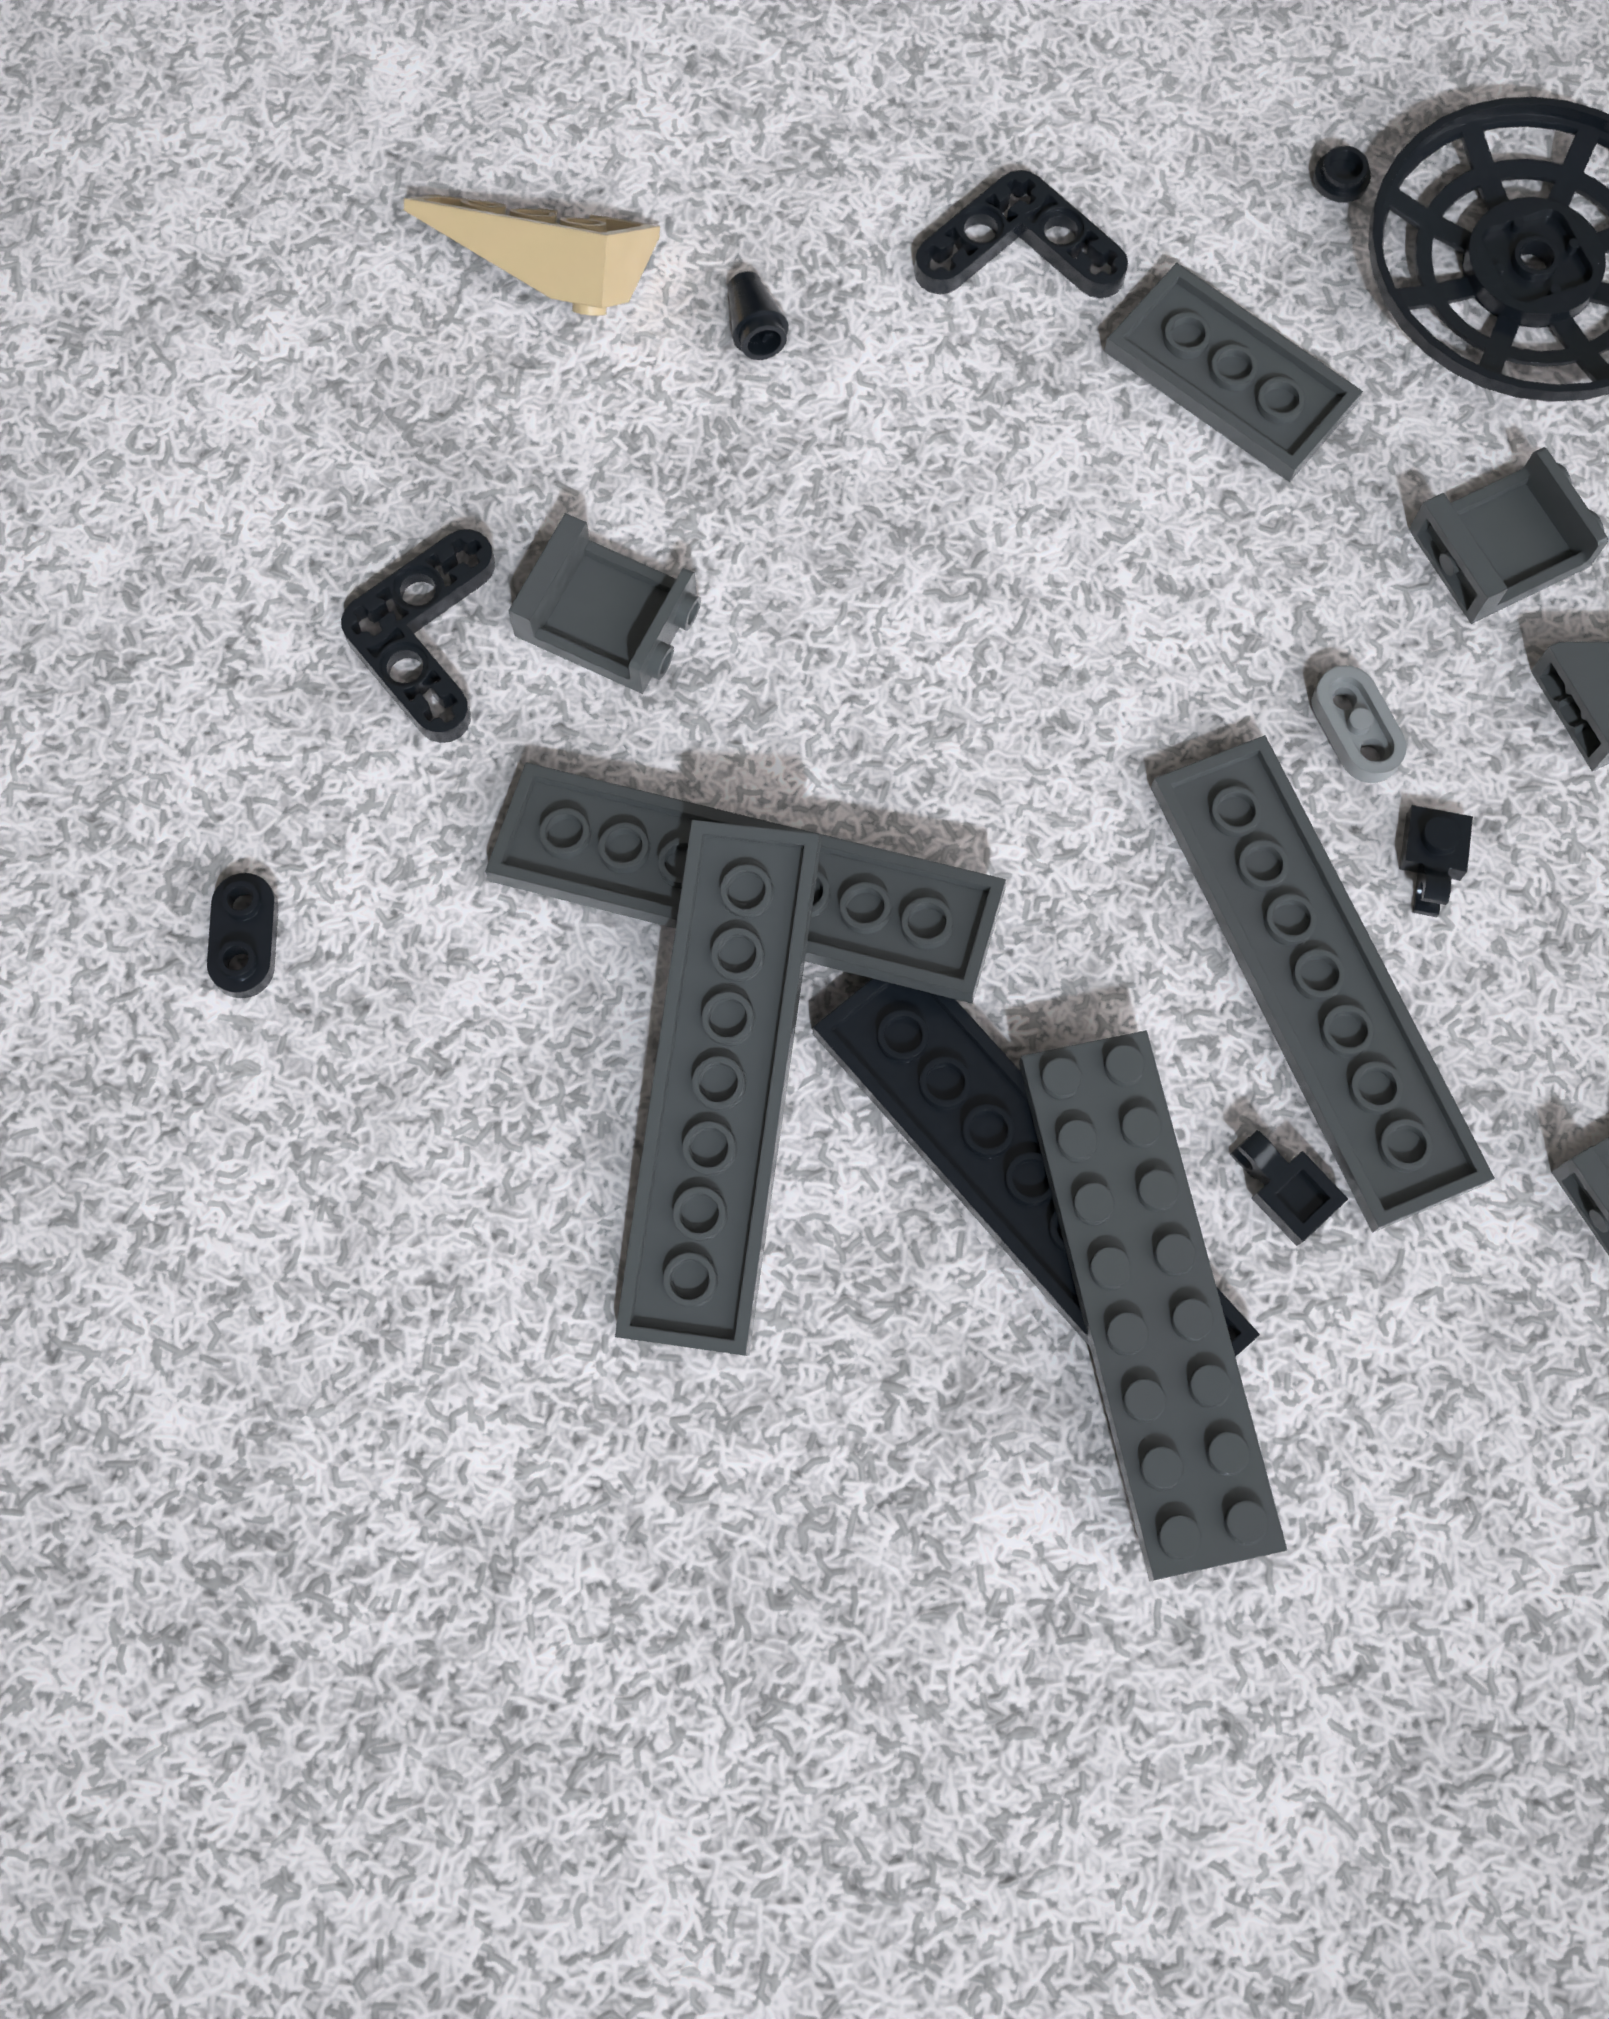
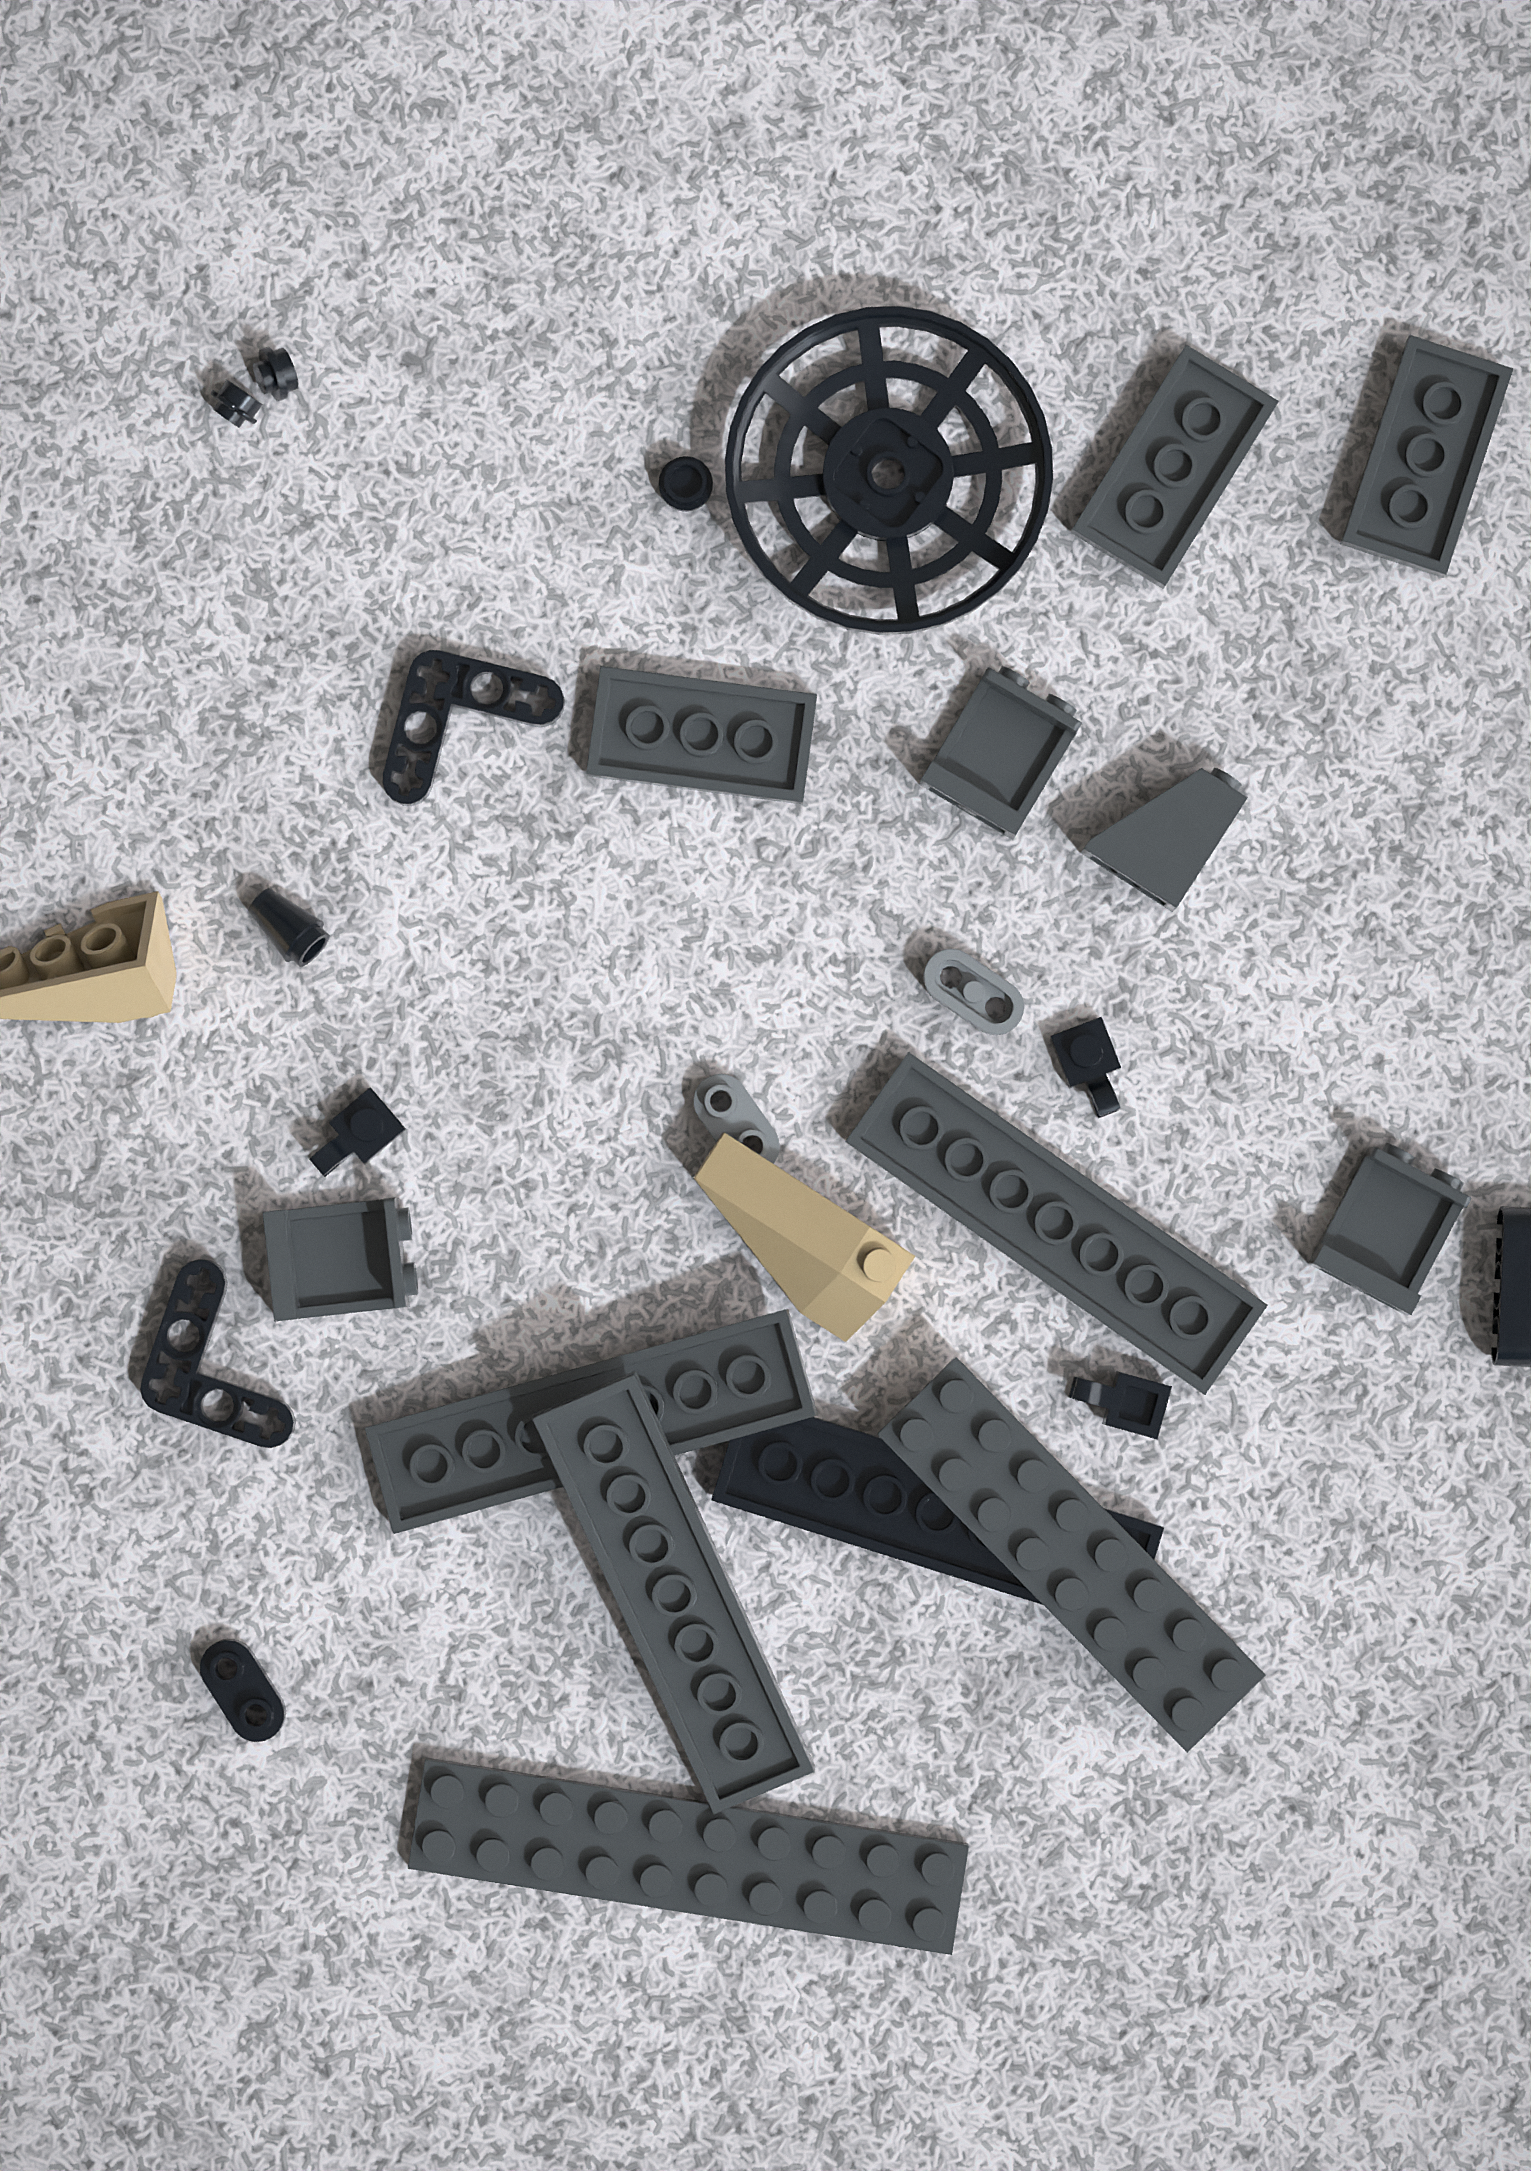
camera: 30 degrees left, 15 degrees up
(566, 1375) = (686, 1858): none -> dark grey plate
(704, 517) = (363, 1129): none -> black plate
(1056, 708) = (740, 1119): none -> light grey plate
(1063, 844) = (812, 1248): none -> tan wedge

